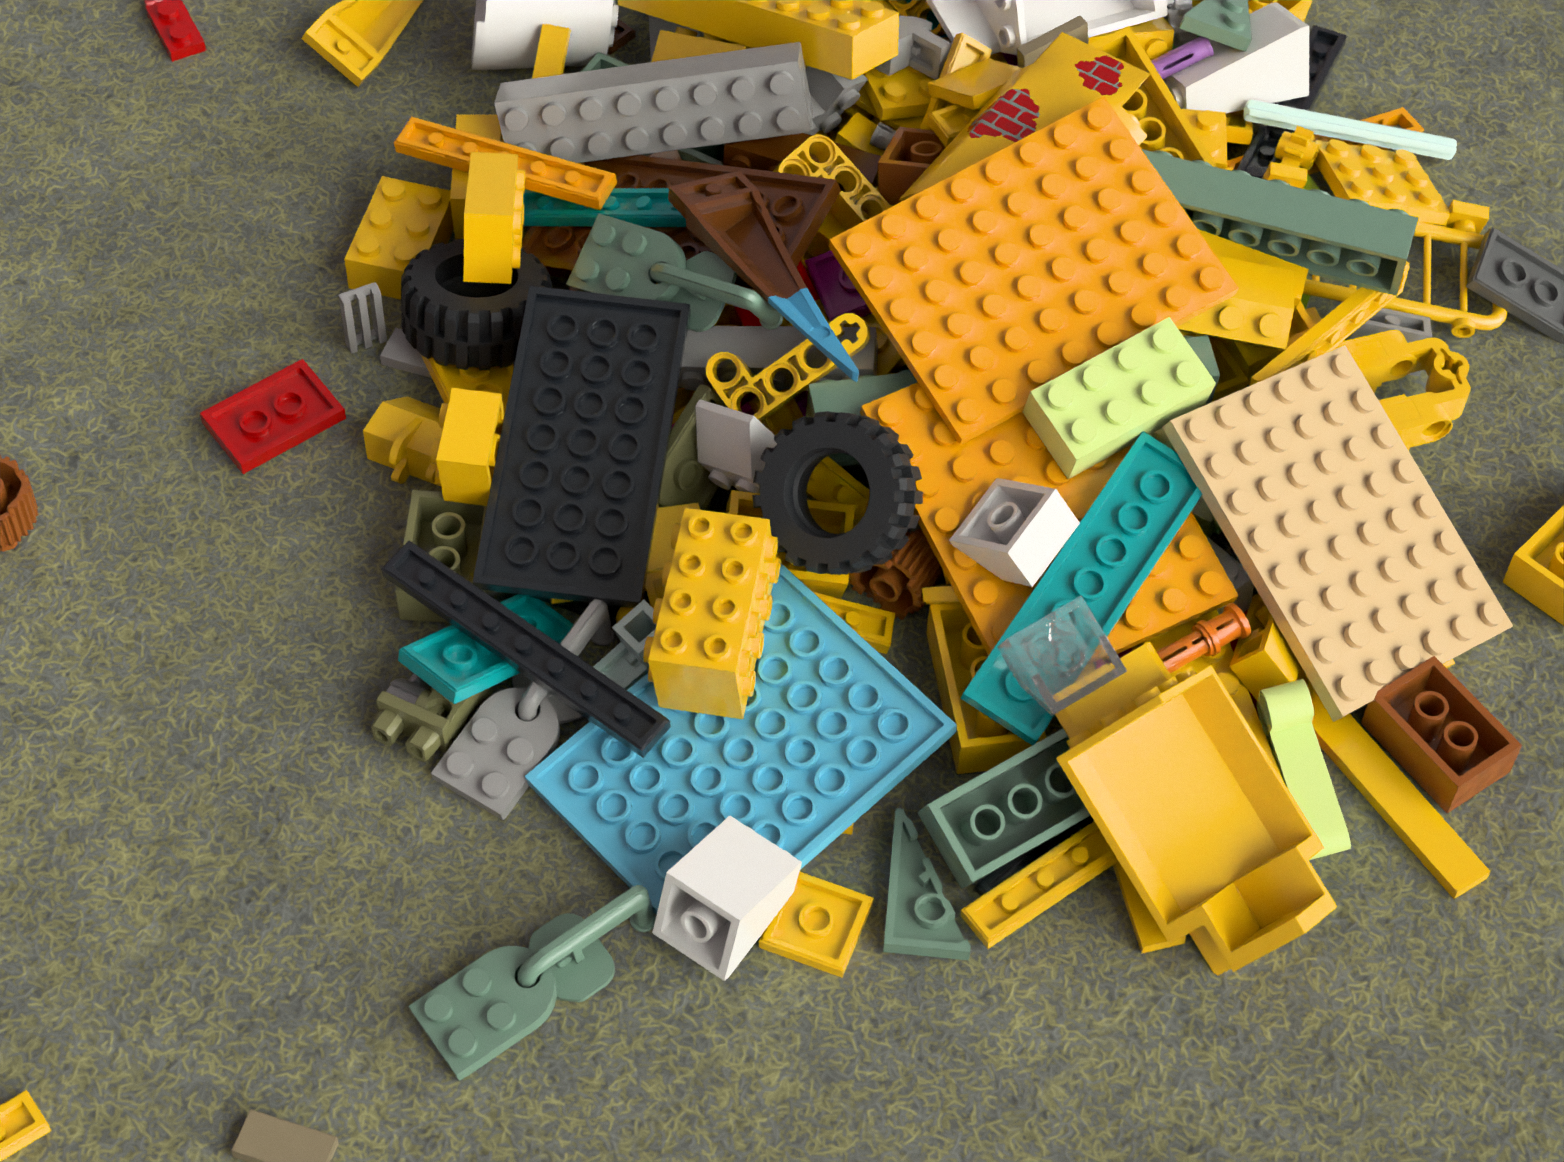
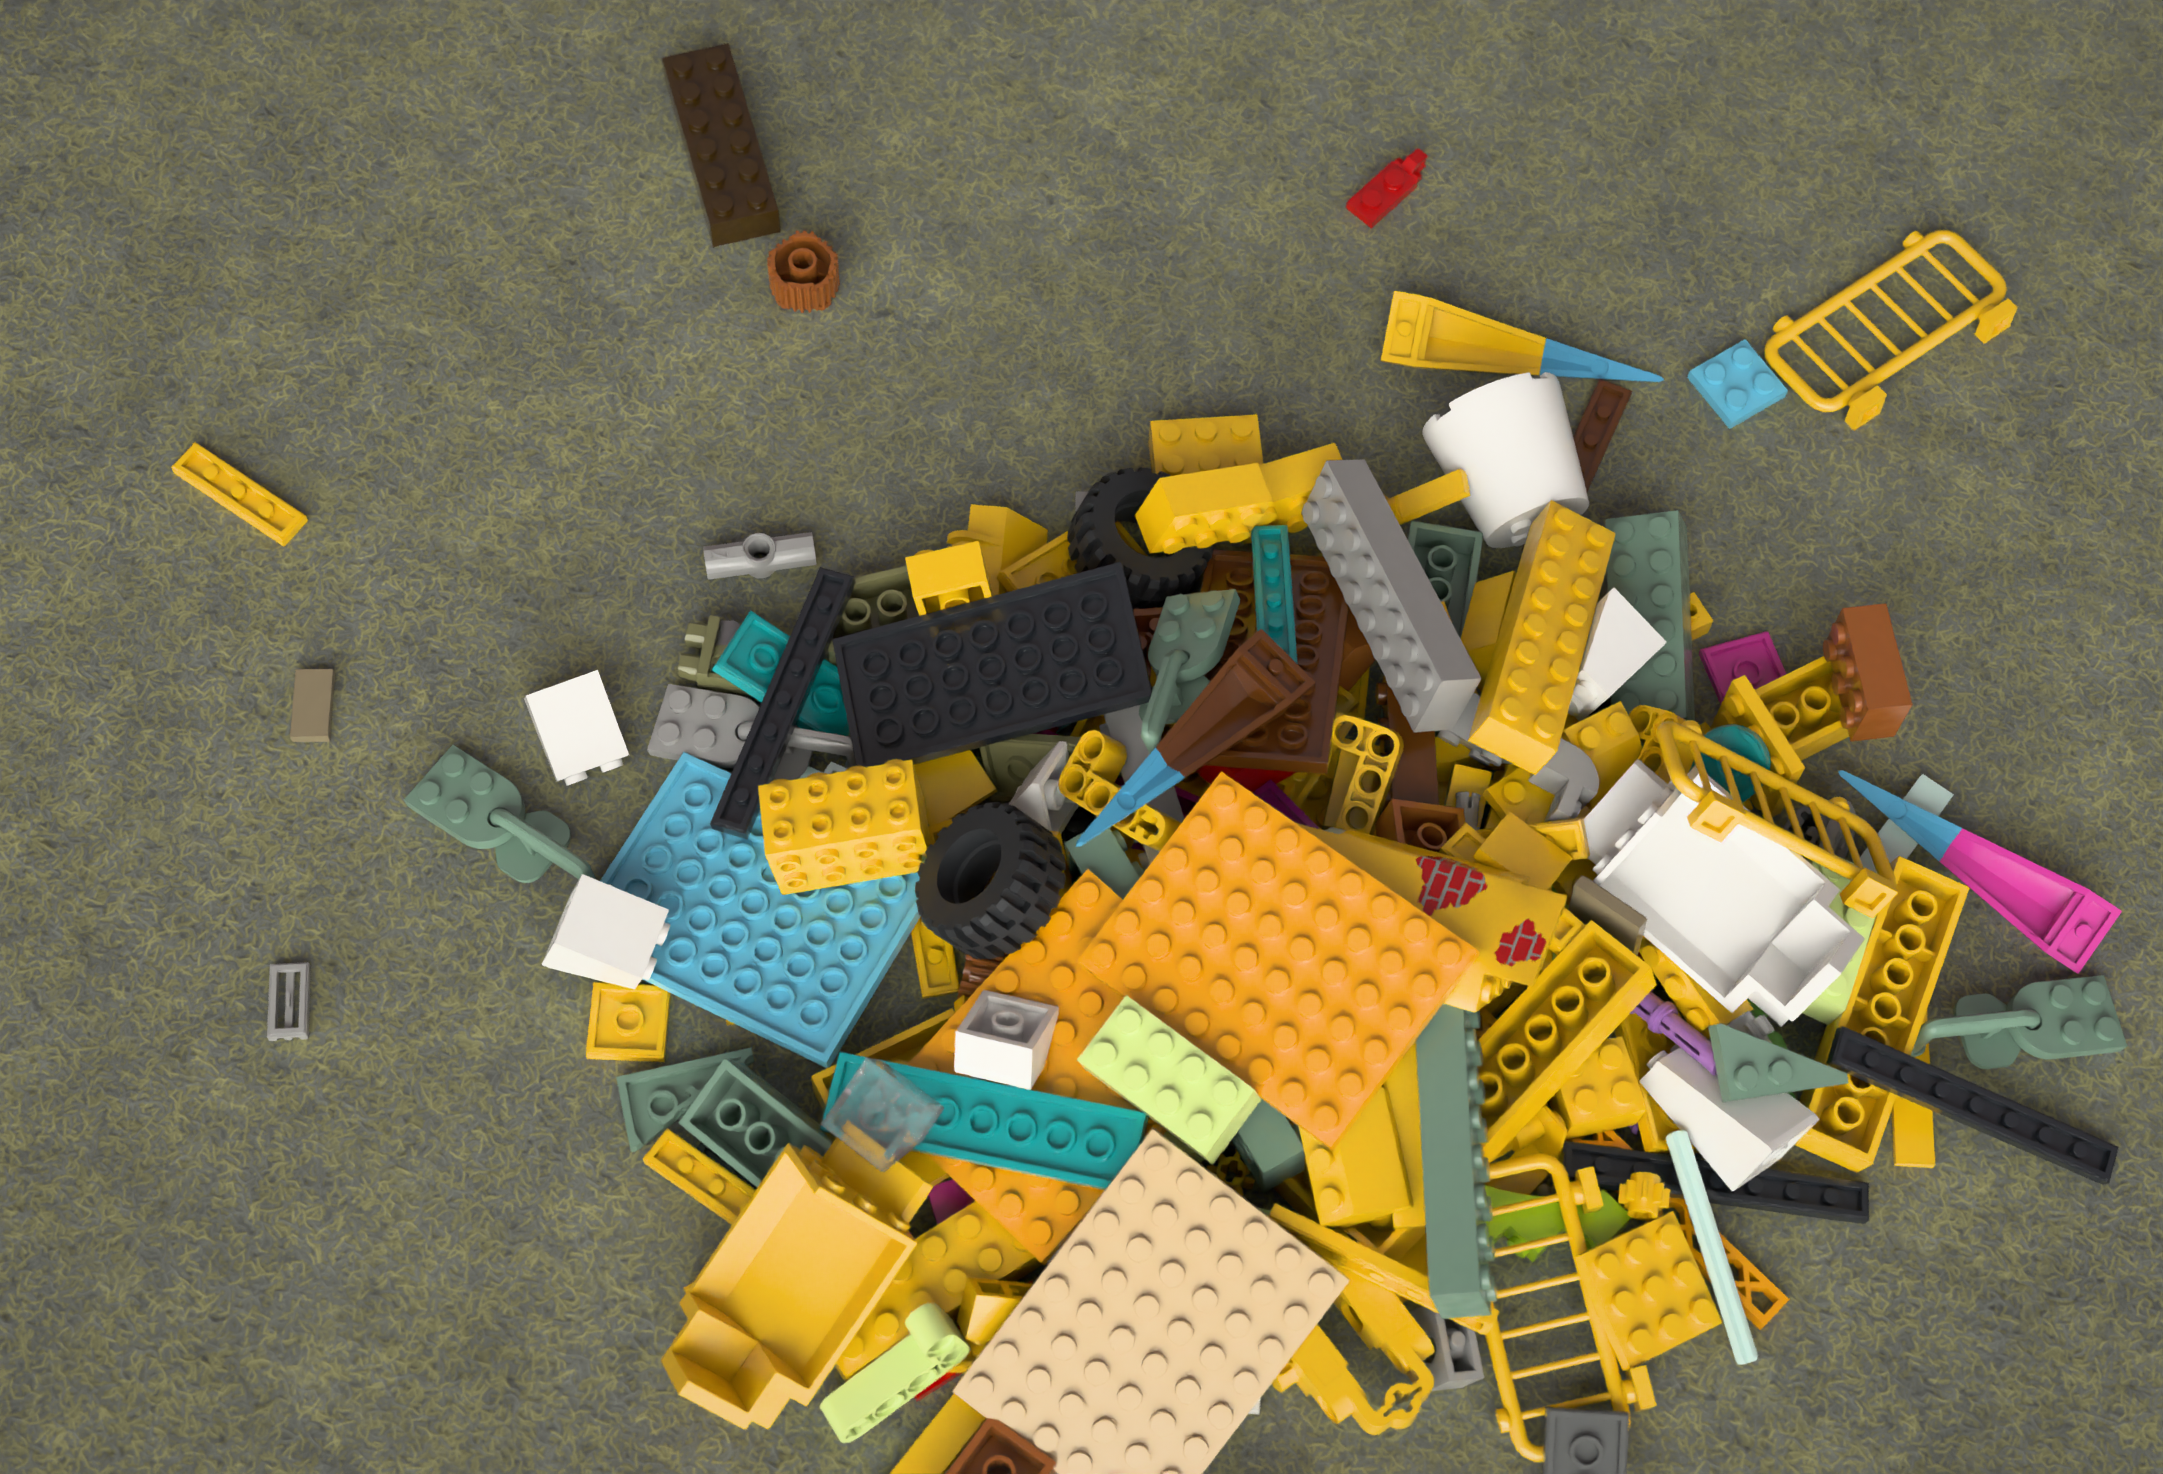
camera: 70 degrees right, 10 degrees up
(272, 416) = (978, 436): red plate -> none
(314, 661) = (738, 558): none -> light grey piece
(366, 335) = (1090, 457): light grey tile -> none
(444, 869) = (577, 727): none -> white slope
(542, 172) = (1287, 490): light orange tile -> none
(1206, 638) = (985, 1248): orange pin -> none

